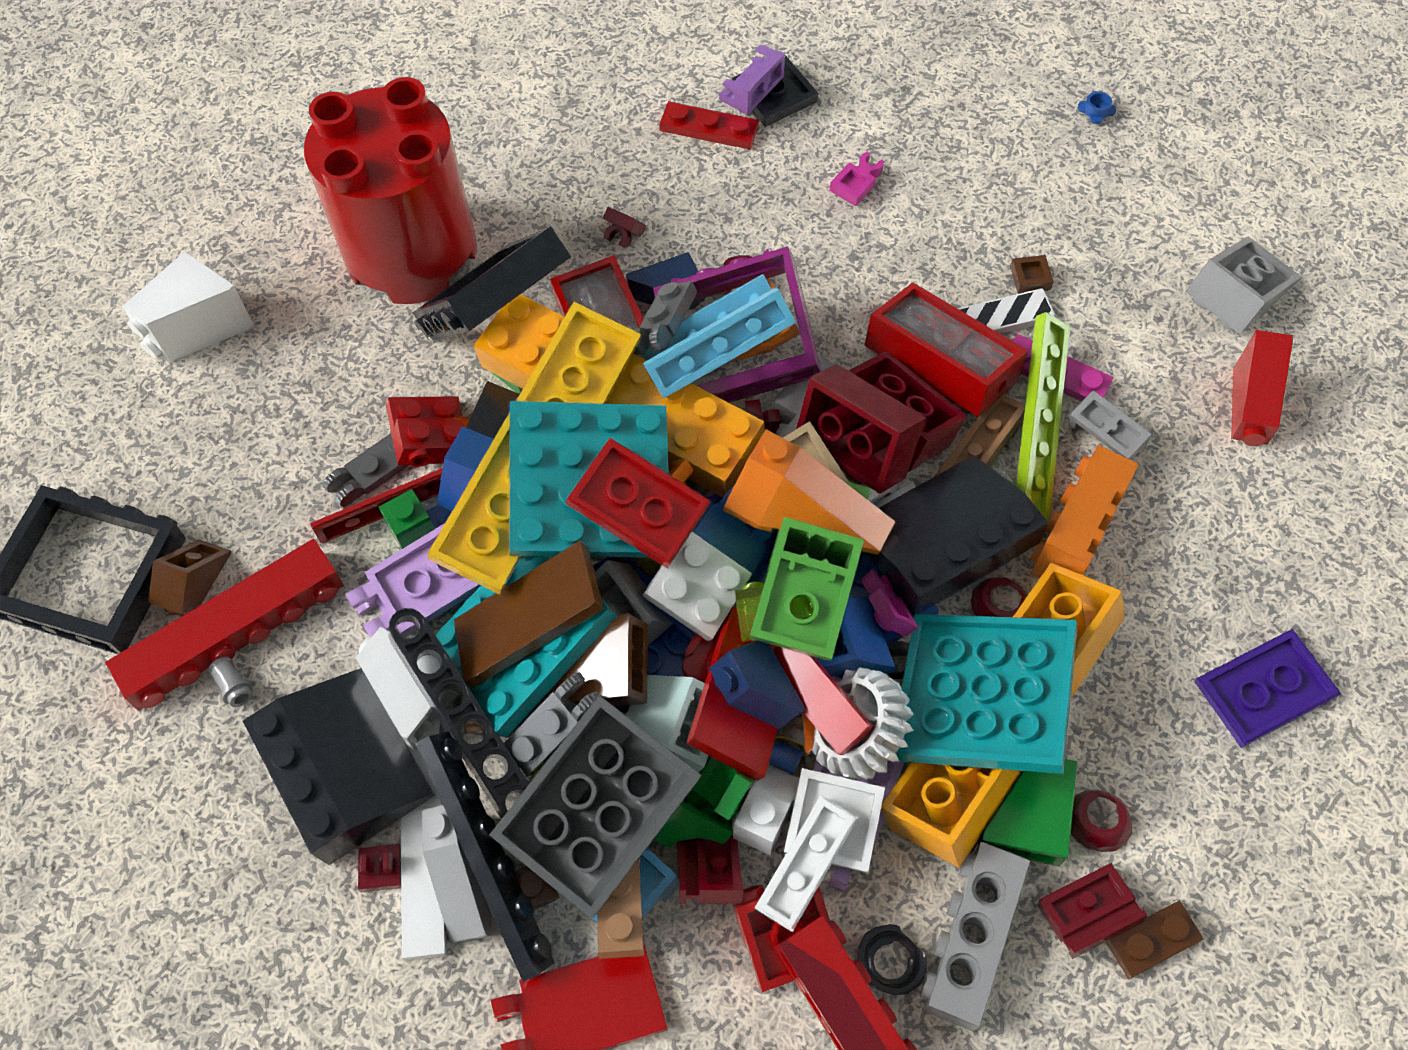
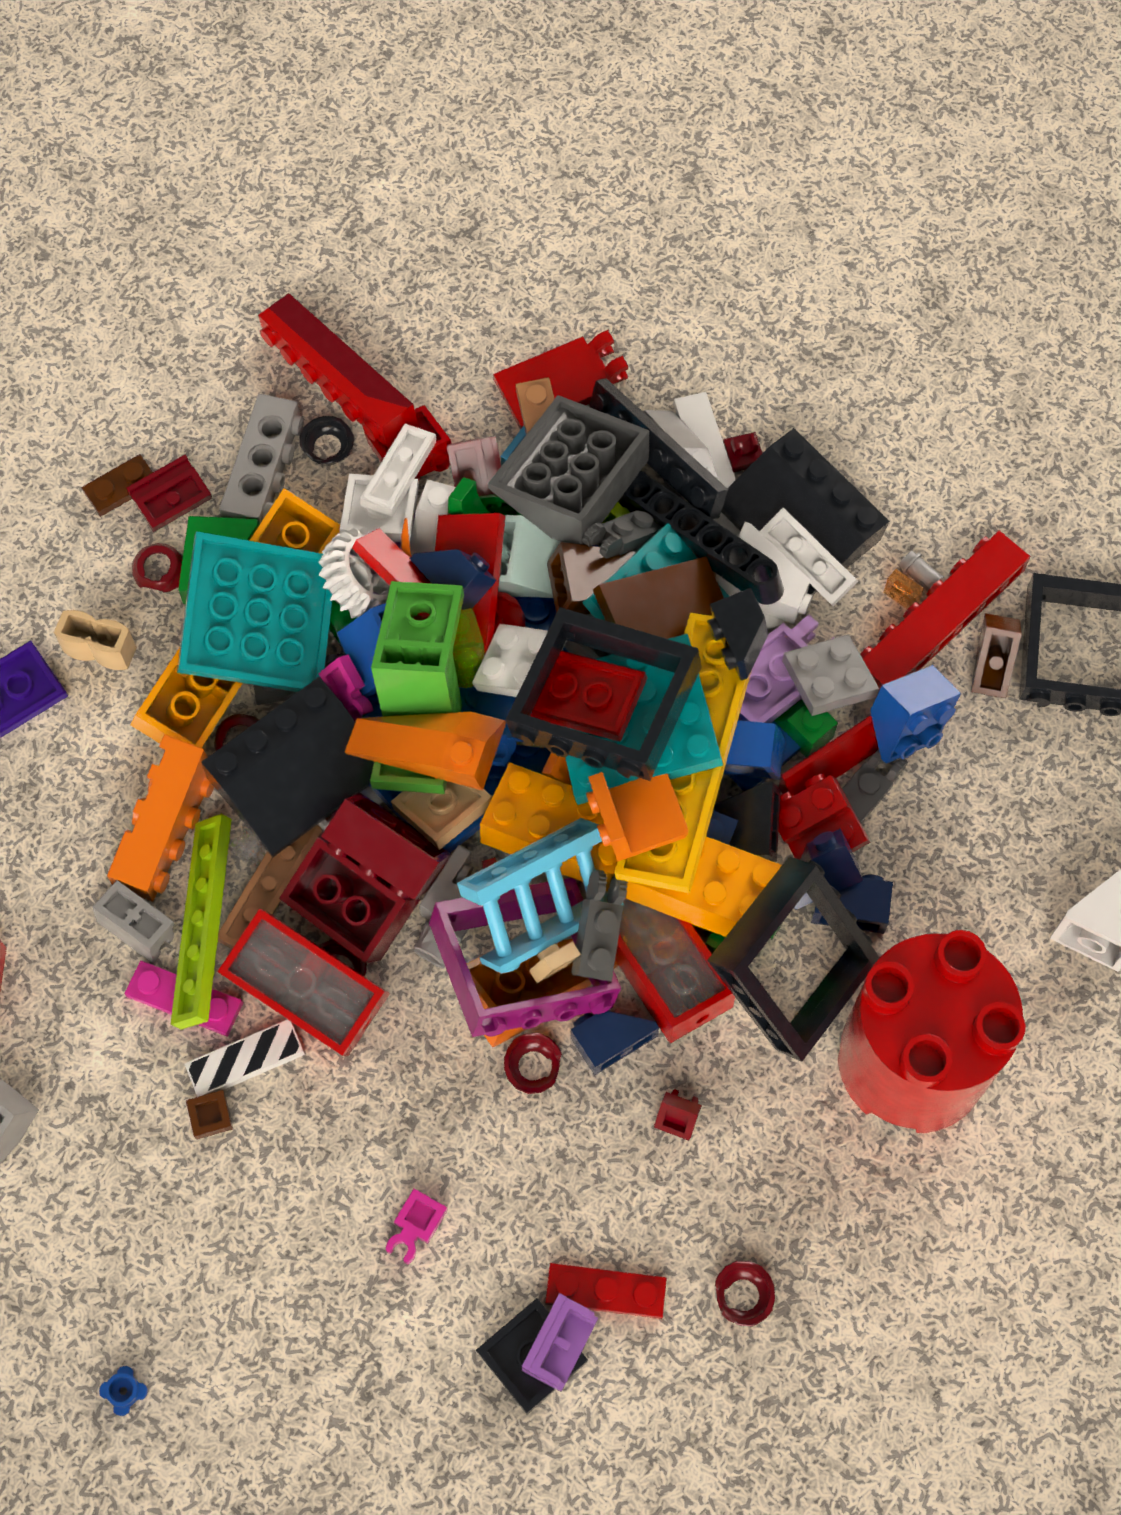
camera: 170 degrees right, 5 degrees up
(258, 657) = (903, 589): none -> clear orange tile
(295, 499) = (912, 712): none -> blue slope
(349, 692) = (809, 556): none -> white plate
(369, 551) = (830, 675): none -> light grey plate
(417, 359) = (867, 901): none -> dark blue slope
(439, 379) = (837, 860): none -> dark blue slope
(450, 533) = (741, 628): none -> black slope
(581, 521) = (623, 642): none -> black window
(598, 97) = (760, 1278): none -> dark red piece
(609, 367) = (637, 814): none -> orange bracket
(708, 289) = (553, 960): none -> tan plate
(1179, 723) = (93, 639): none -> tan brick

